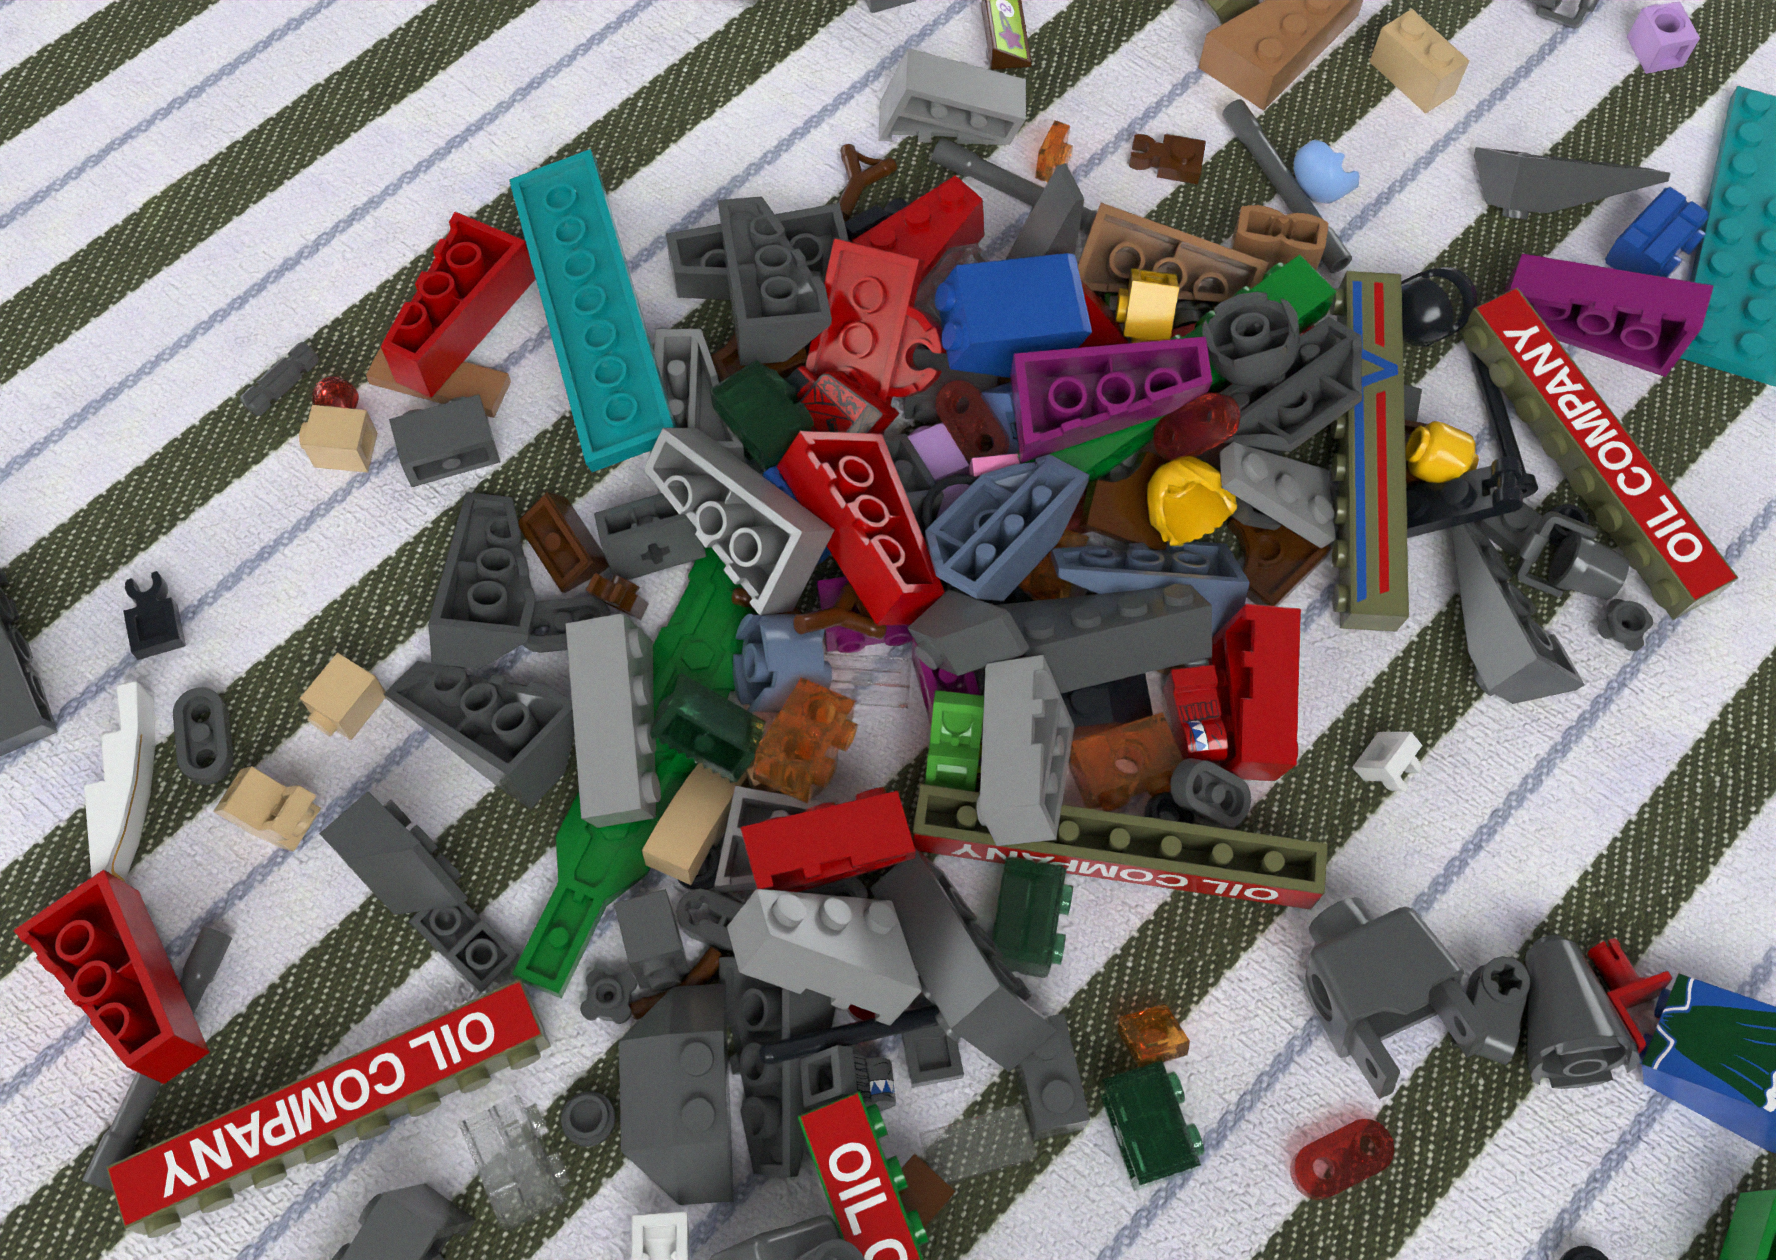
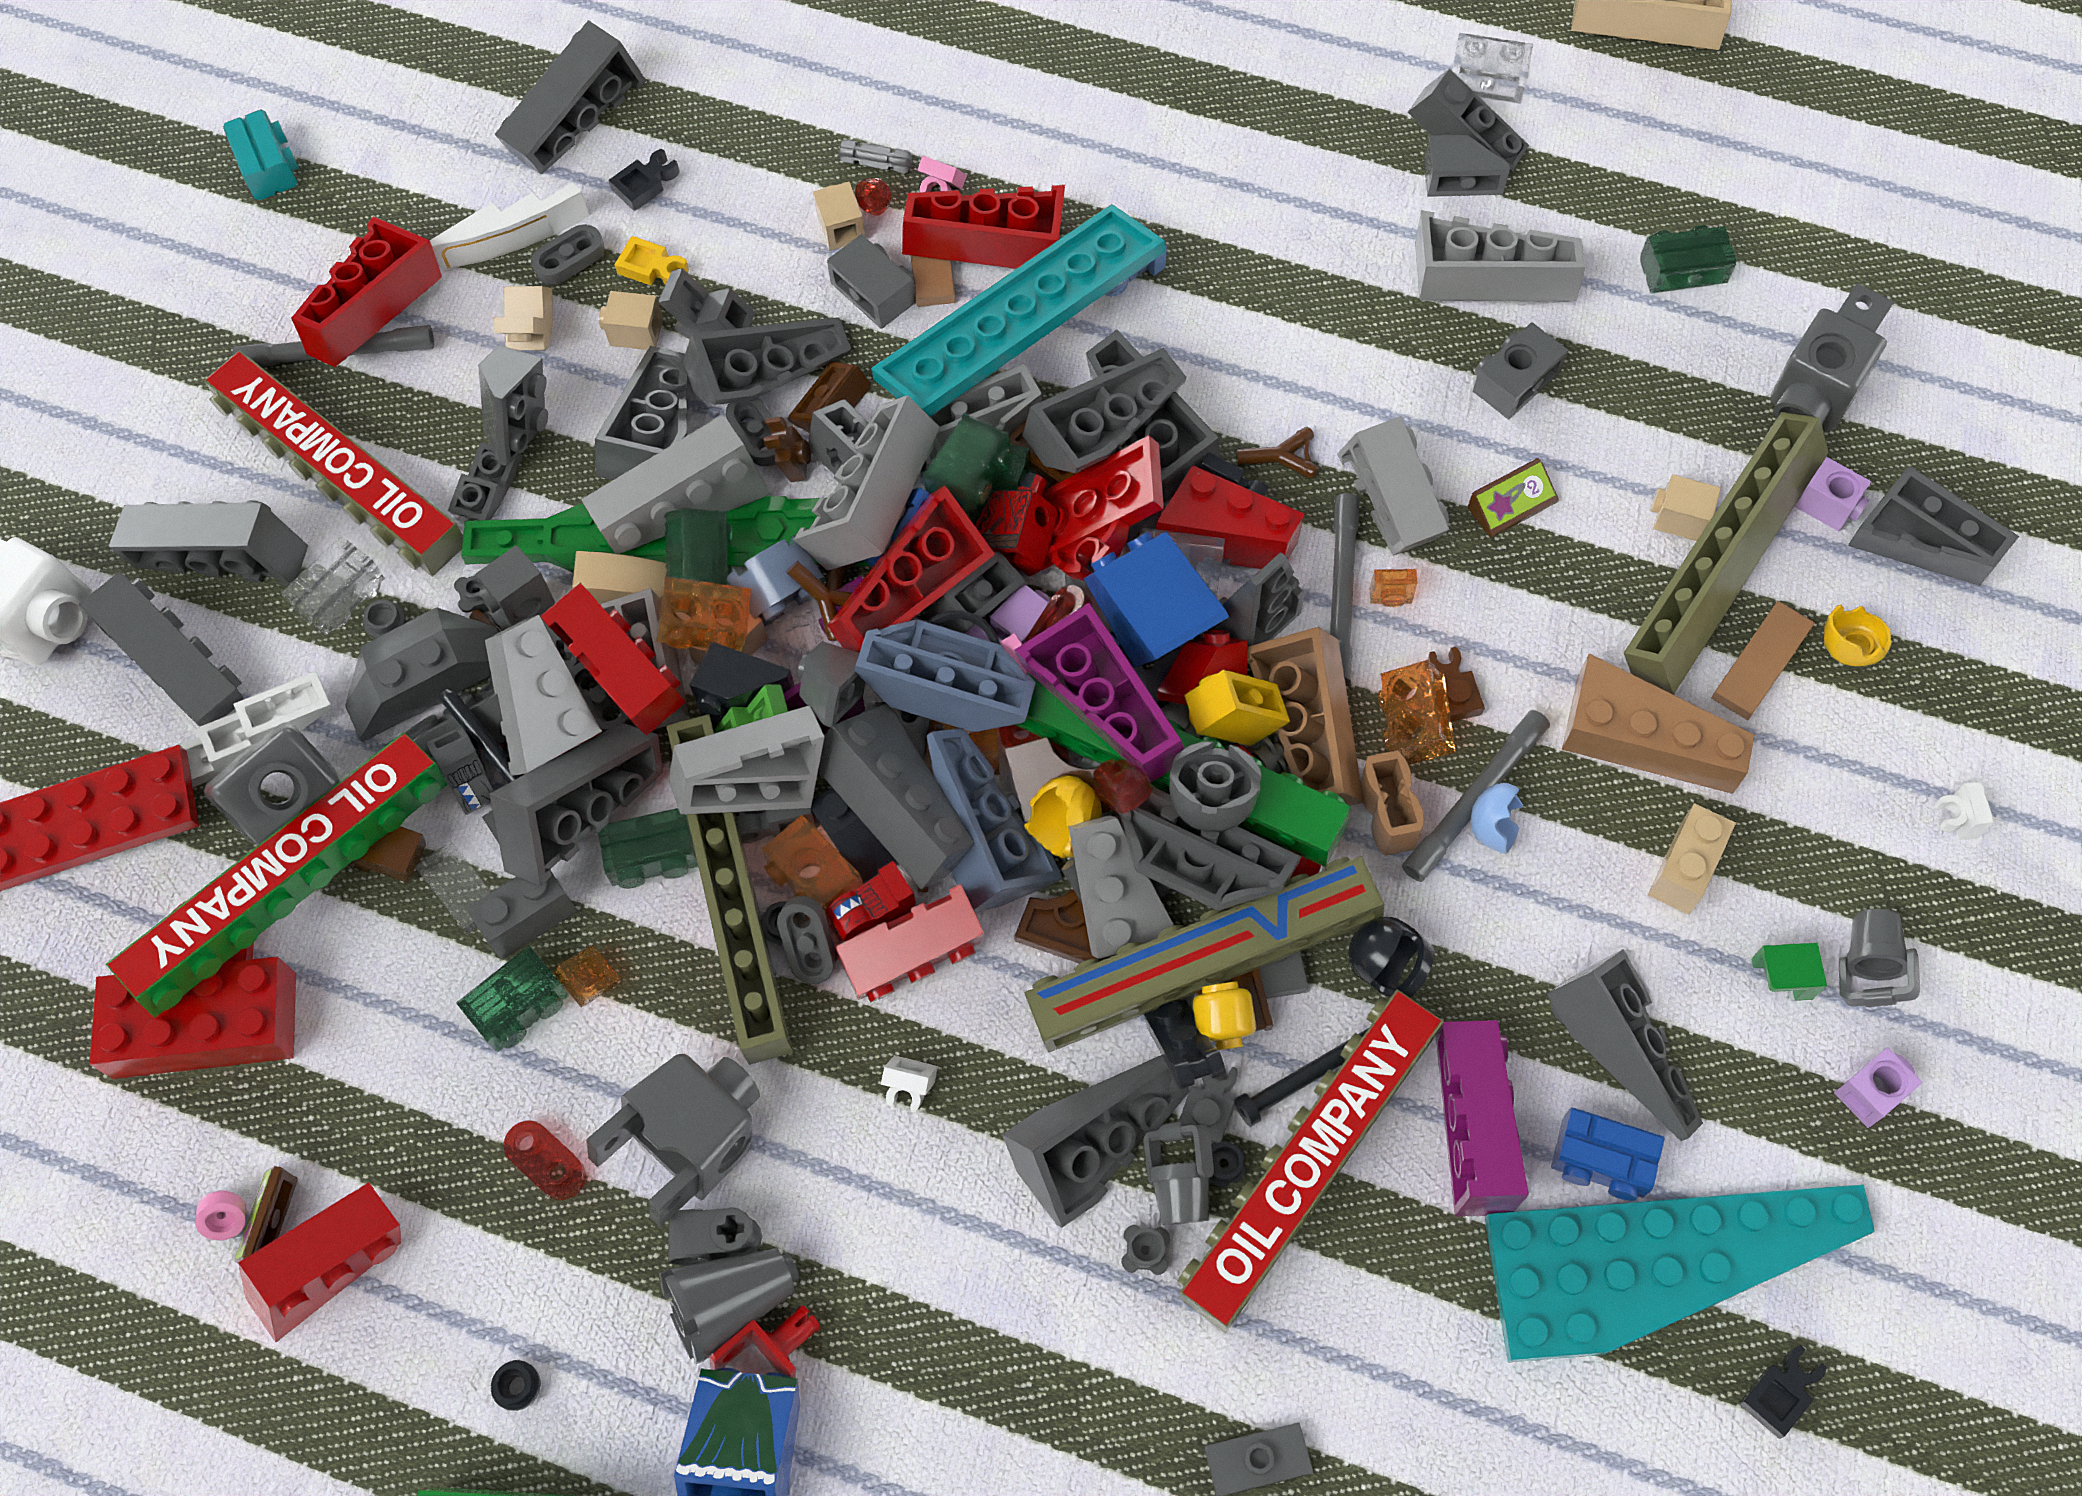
camera: 70 degrees right, 0 degrees up
(270, 656) = (646, 261): none -> yellow plate
(351, 324) = (939, 174): none -> bright pink tile
(390, 614) = (703, 311): none -> dark grey brick
(894, 745) = (733, 680): none -> black slope
(1199, 175) = (1425, 709): none -> clear orange brick
(1546, 37) = (1792, 969): none -> green panel

